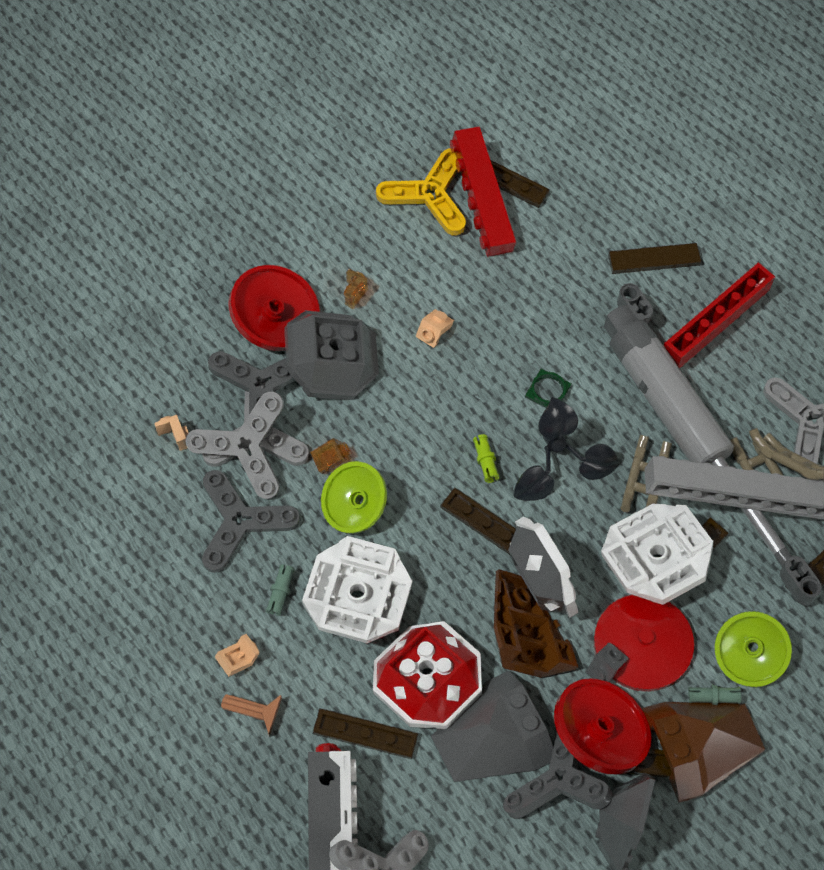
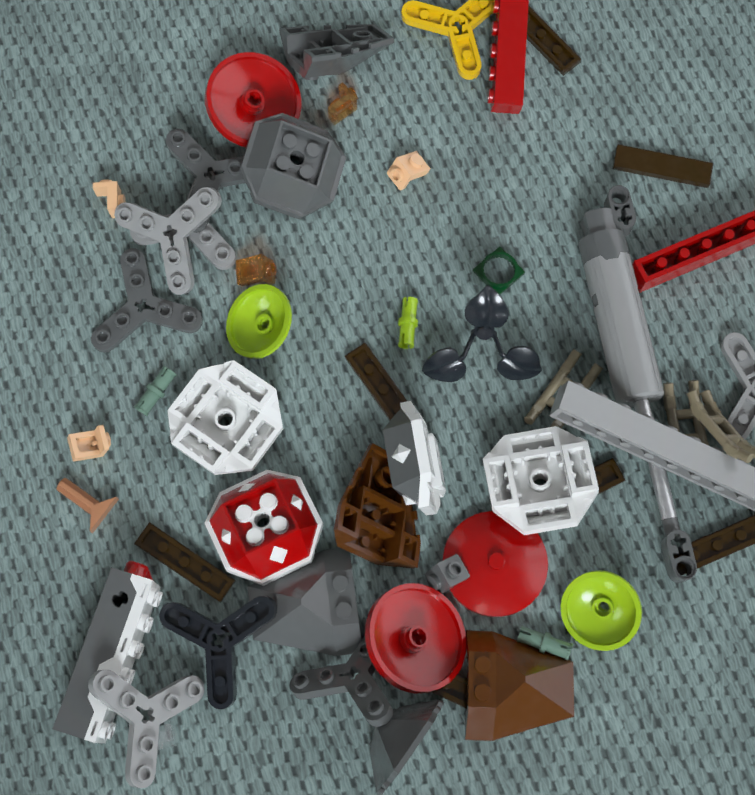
camera: 20 degrees right, 10 degrees up
(326, 245) = (331, 50): none -> dark grey wedge
(432, 807) = (219, 659): none -> black piece

